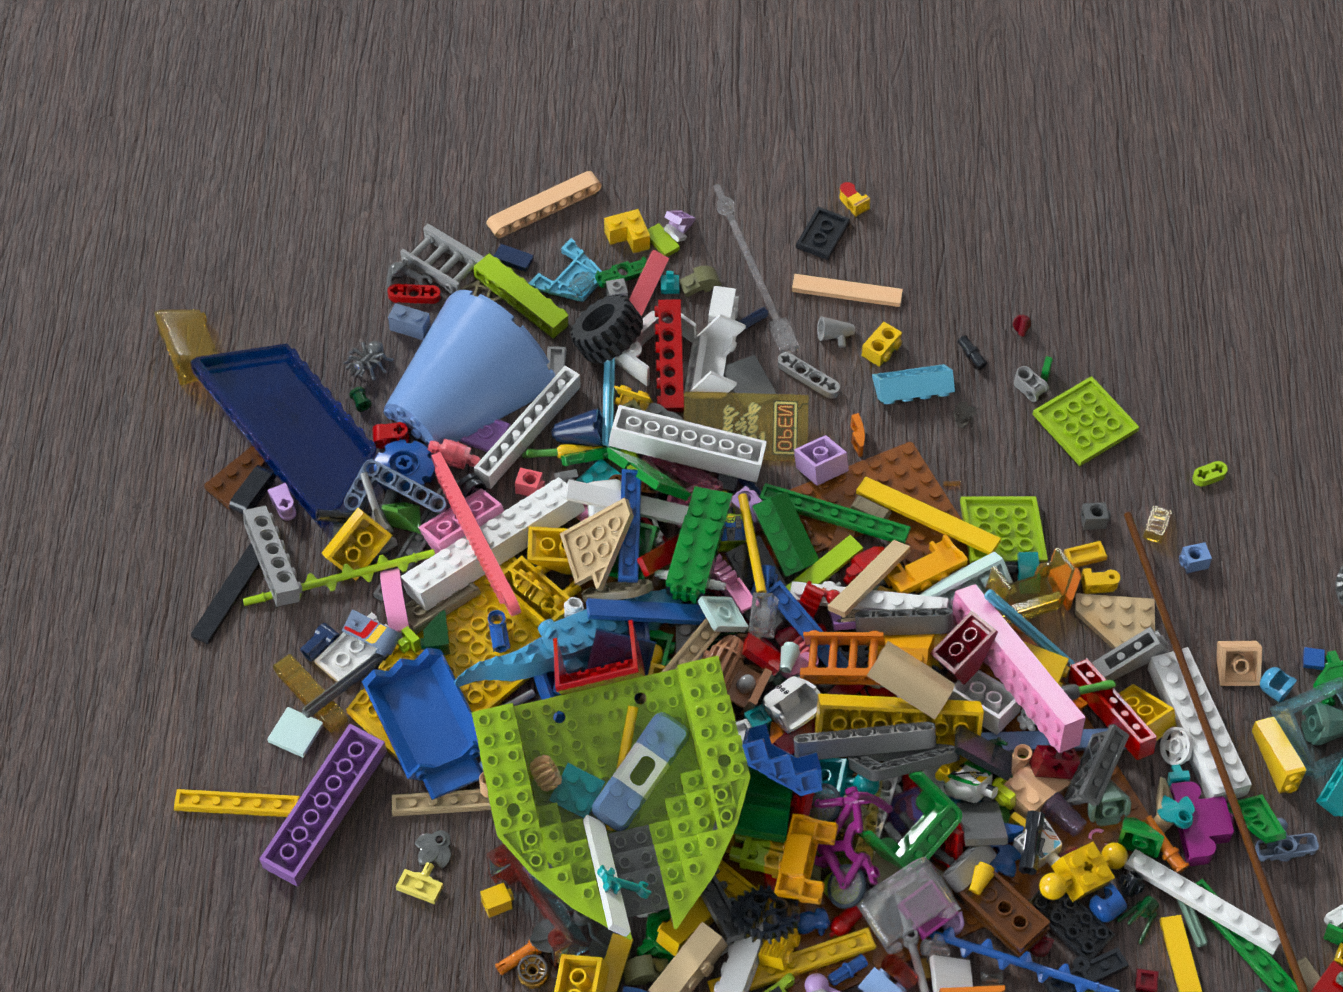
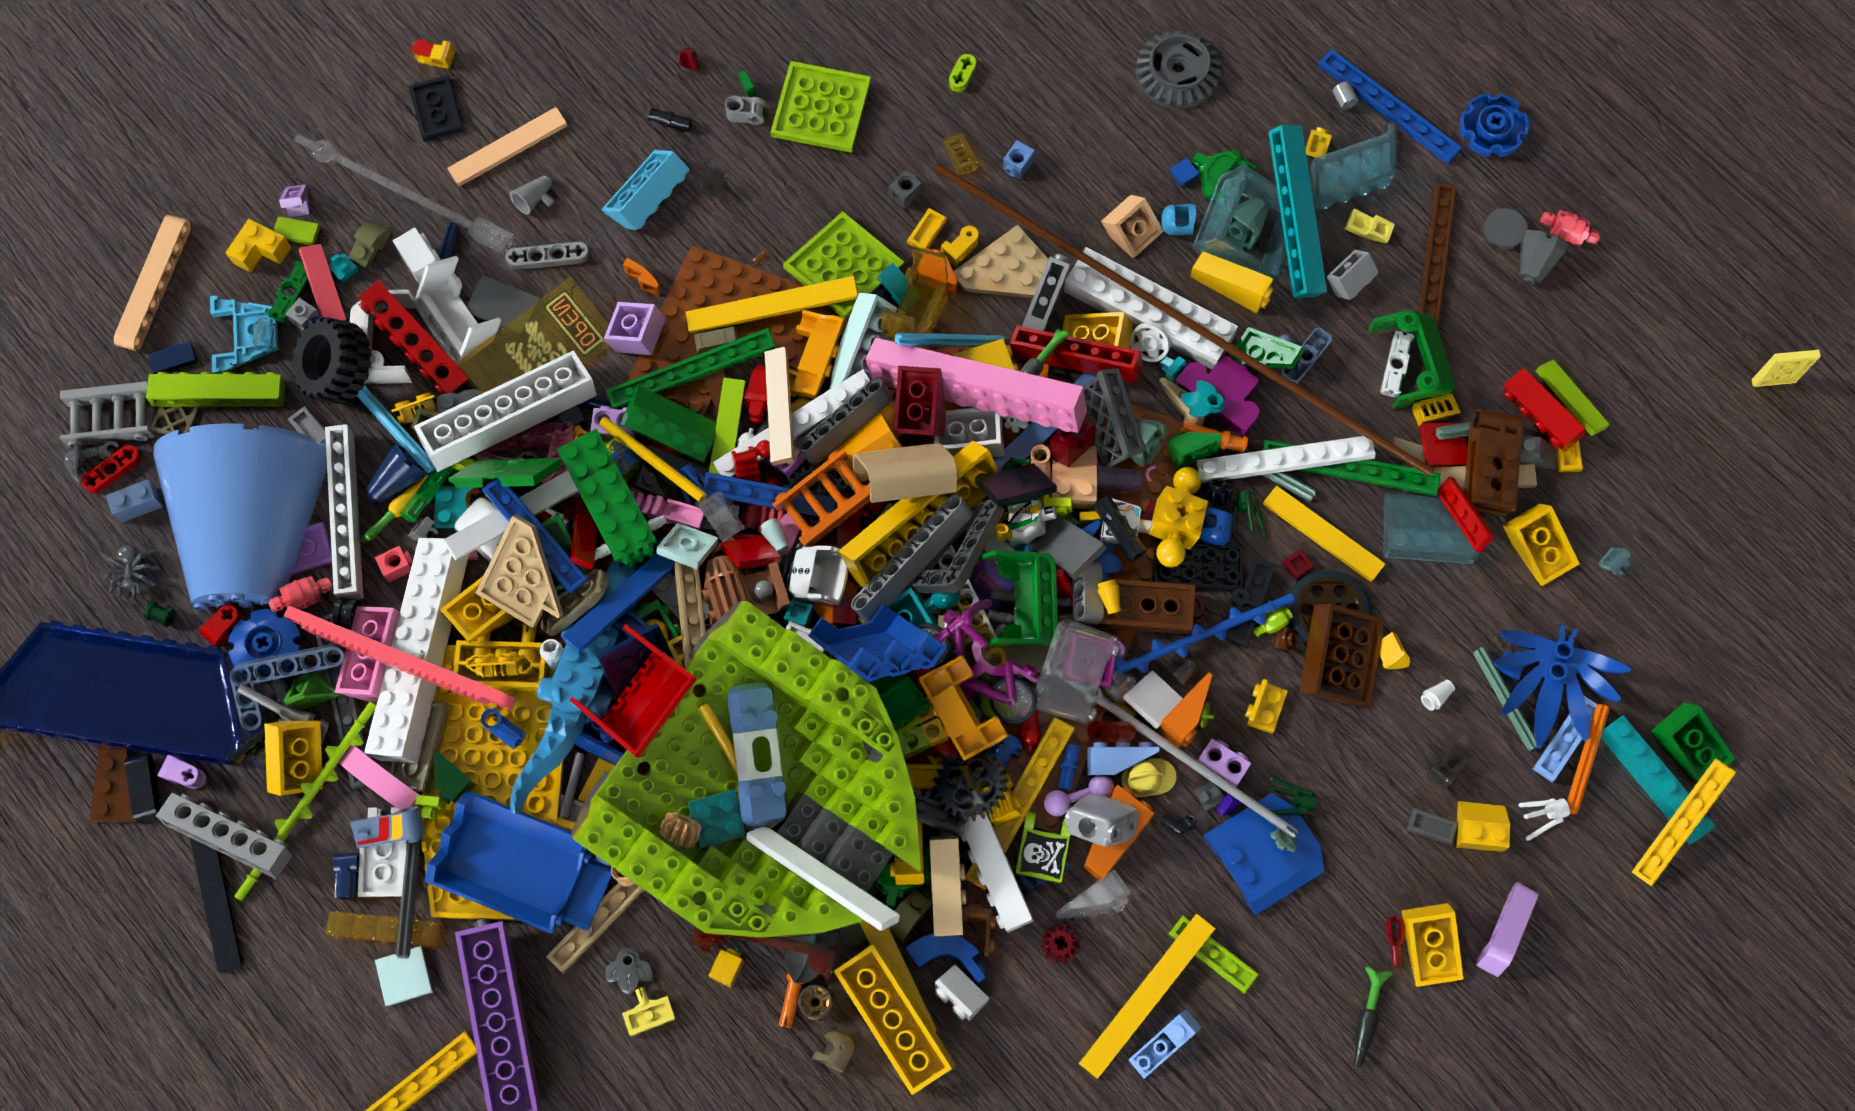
camera: 40 degrees left, 15 degrees up
(617, 883) = (840, 881): teal bar -> none
(676, 234) = (301, 214): white piece -> none
(882, 344) = (583, 175): yellow brick -> none

